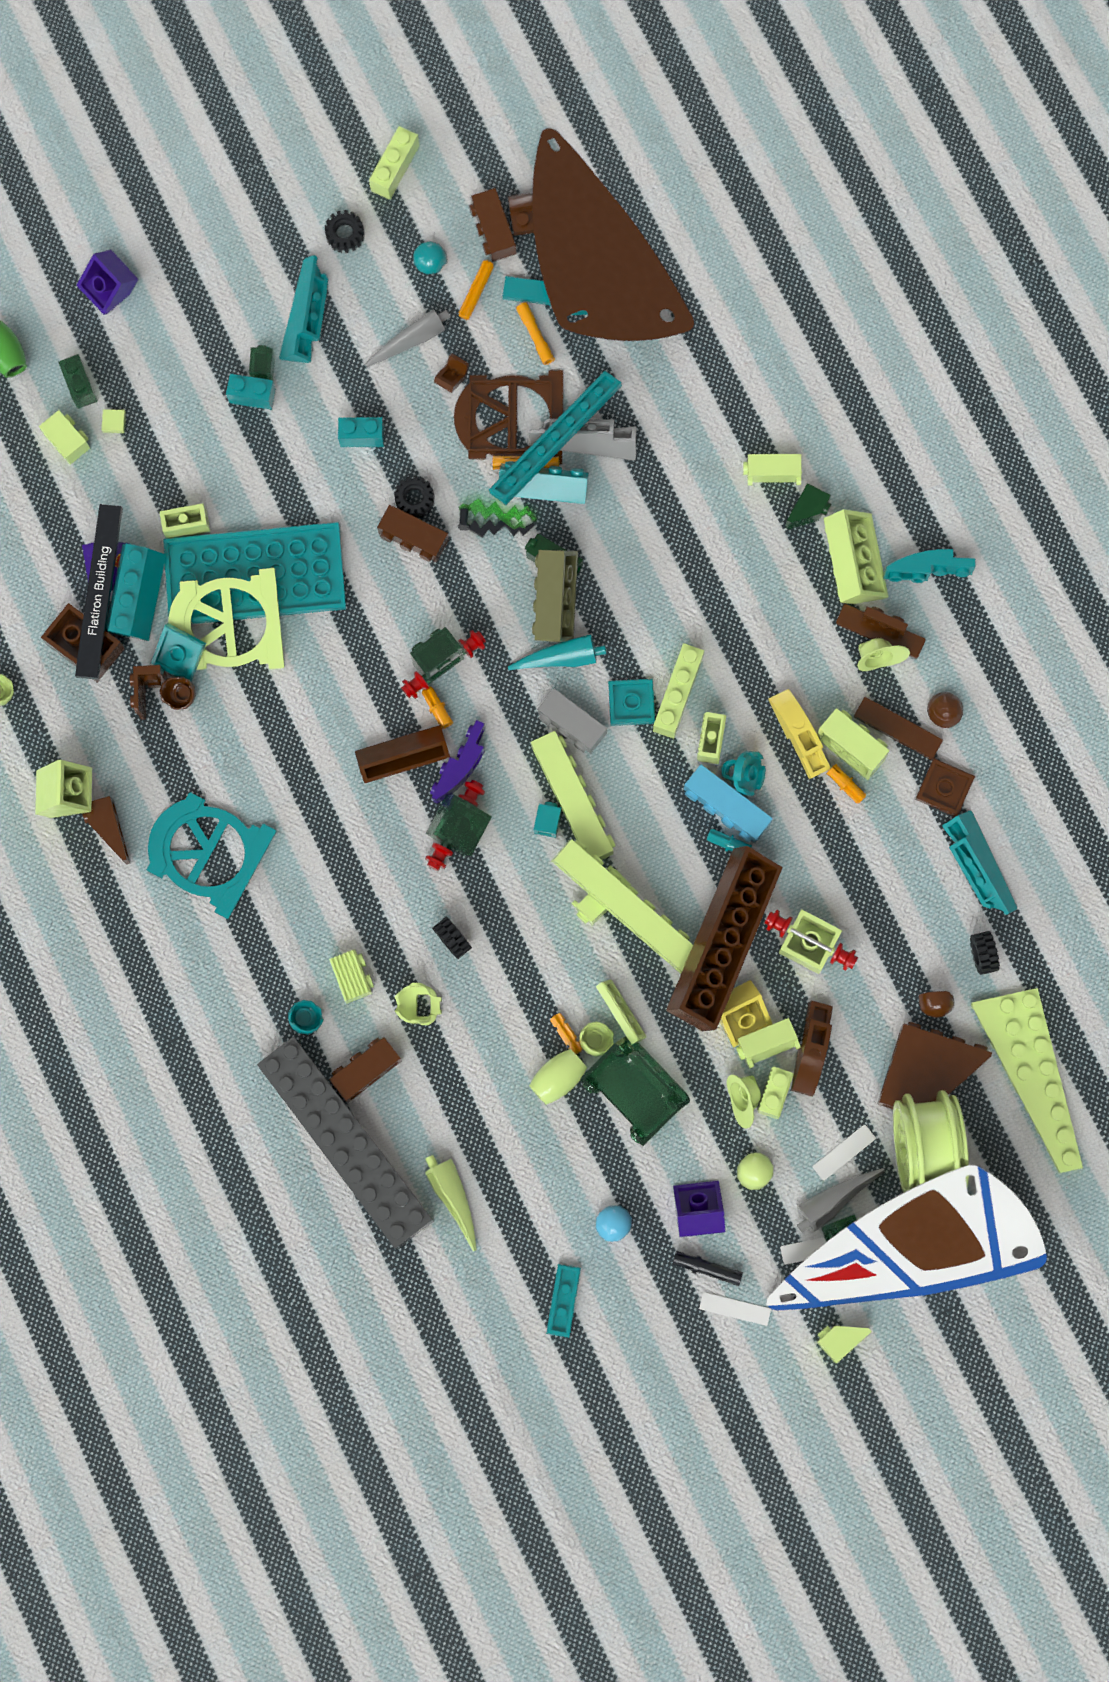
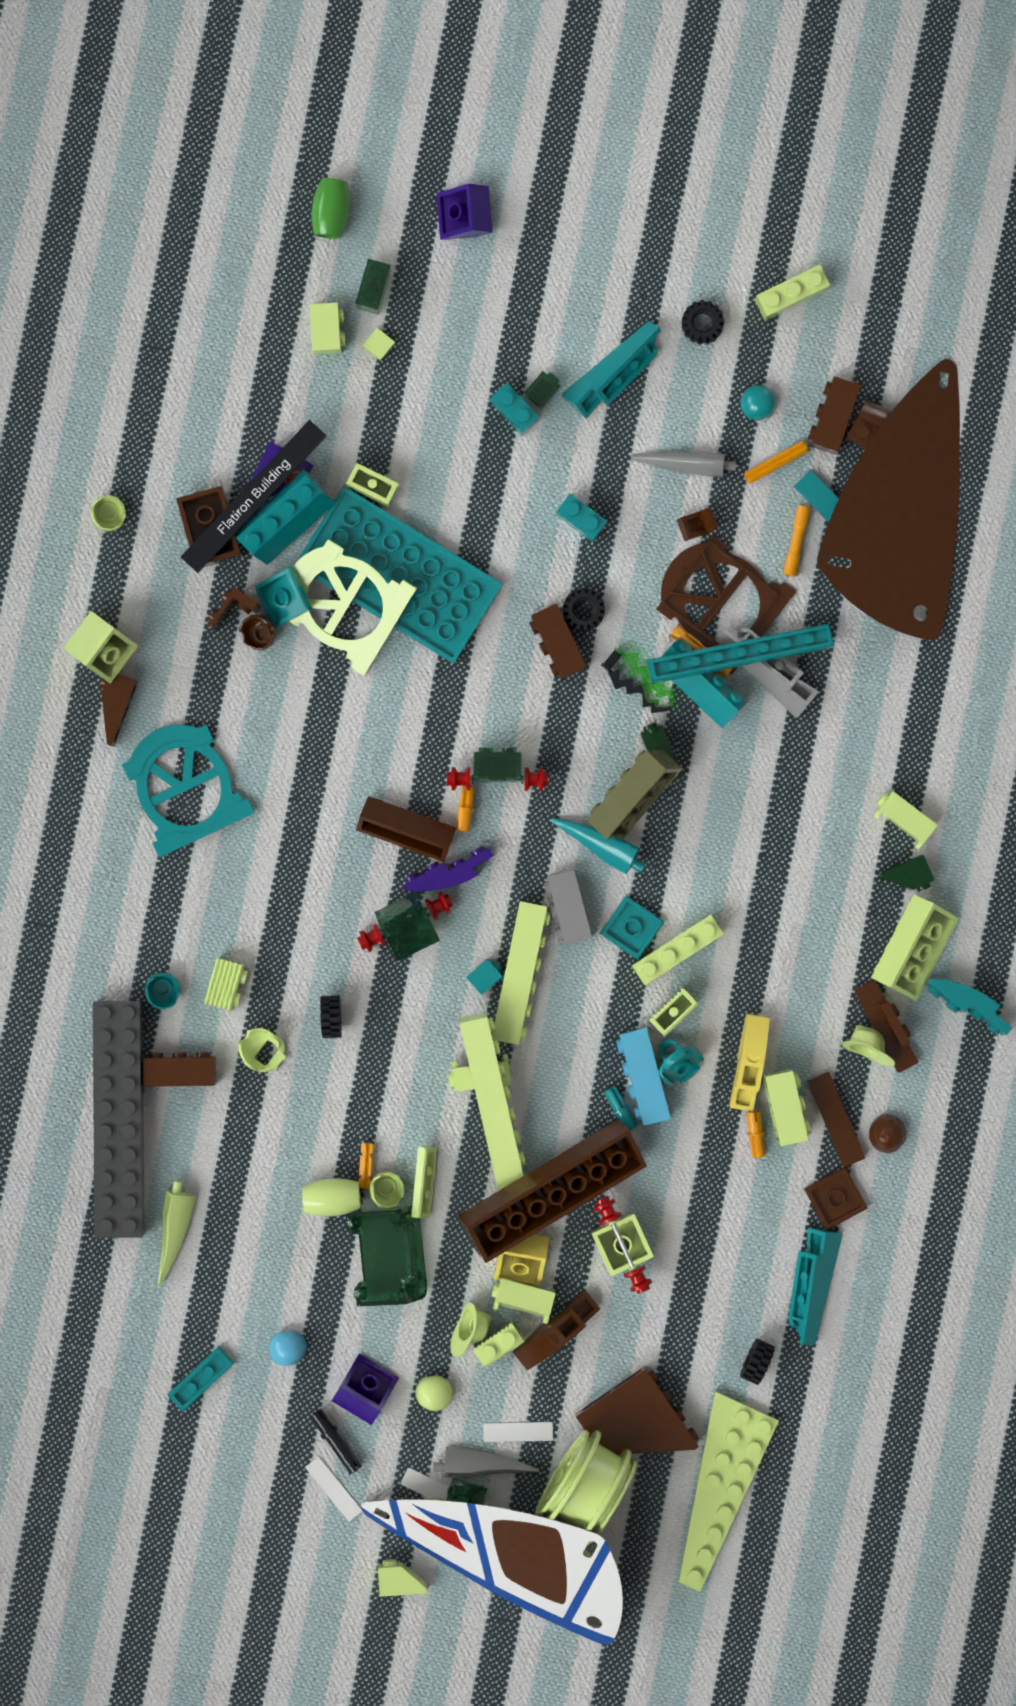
camera: 30 degrees right, 10 degrees up
(936, 1003) = (685, 1373): reddish brown hair -> none

